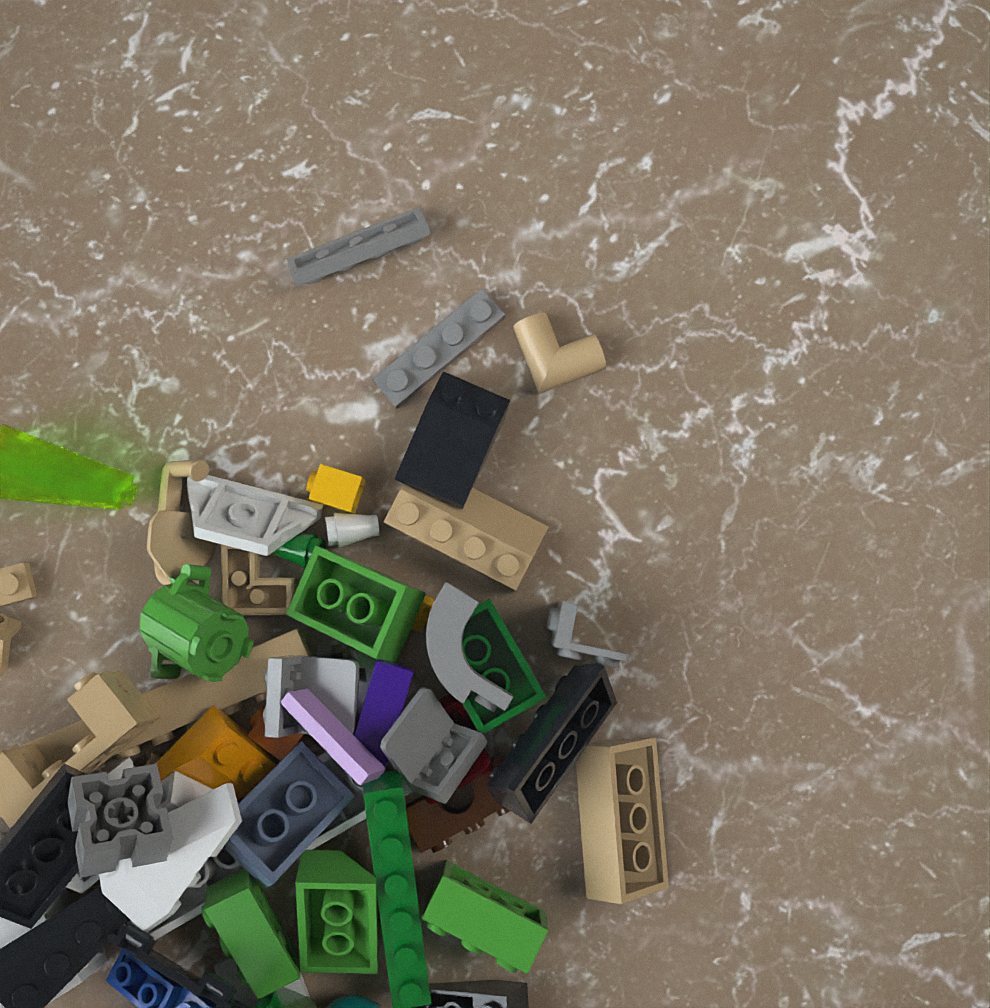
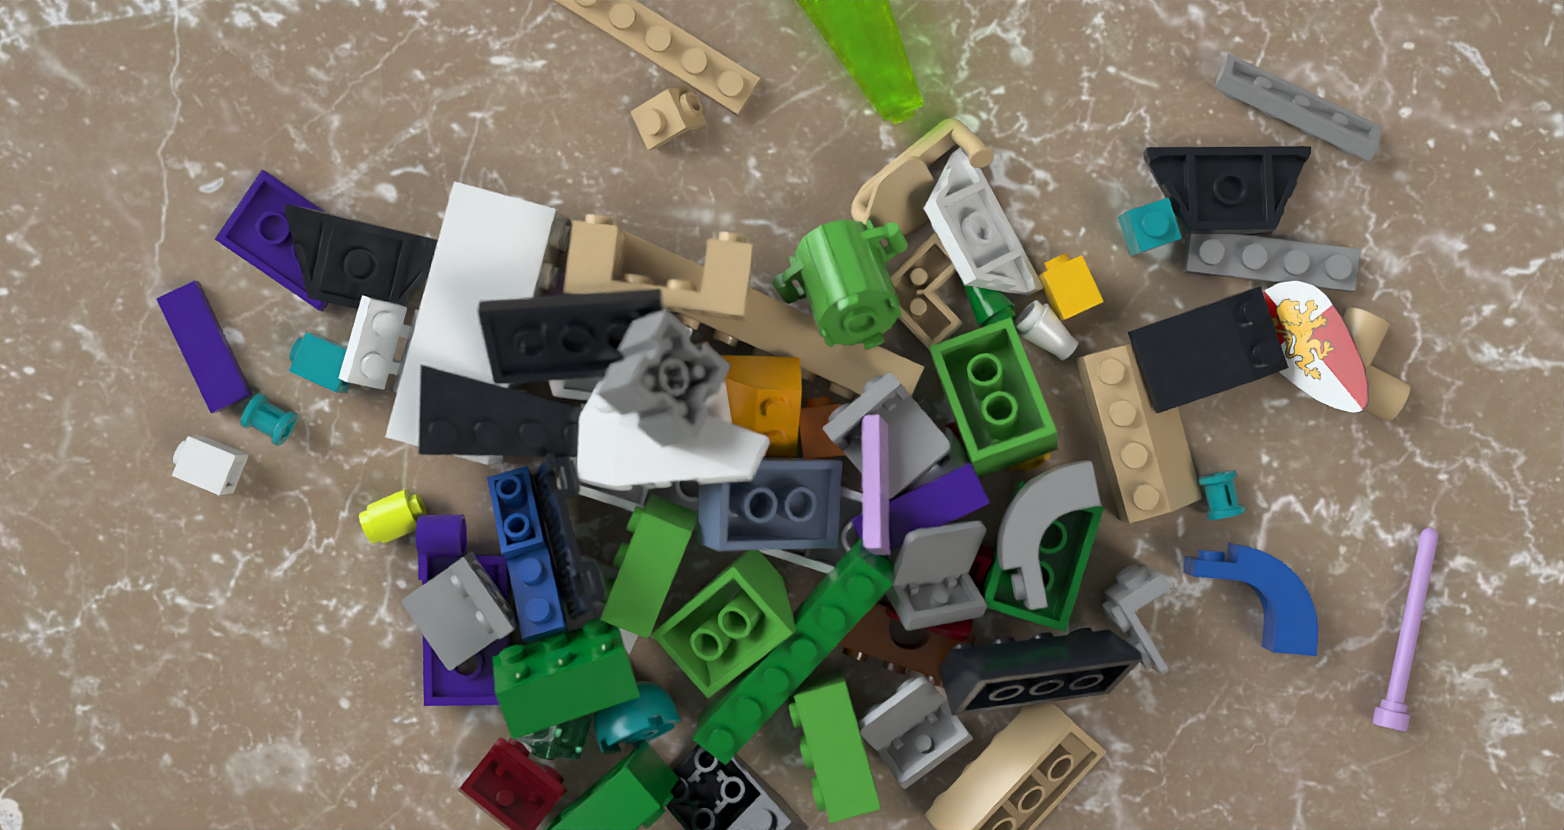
camera: 50 degrees right, 5 degrees up
(345, 404) = (1149, 227): none -> teal brick
(366, 333) = (1227, 186): none -> black wing
(514, 370) = (1317, 346): none -> shield
(522, 855) = (913, 730): none -> light grey bracket
(556, 513) = (1221, 495): none -> teal bush
(664, 536) = (1287, 606): none -> blue arch
(792, 530) = (1392, 709): none -> lavender piece

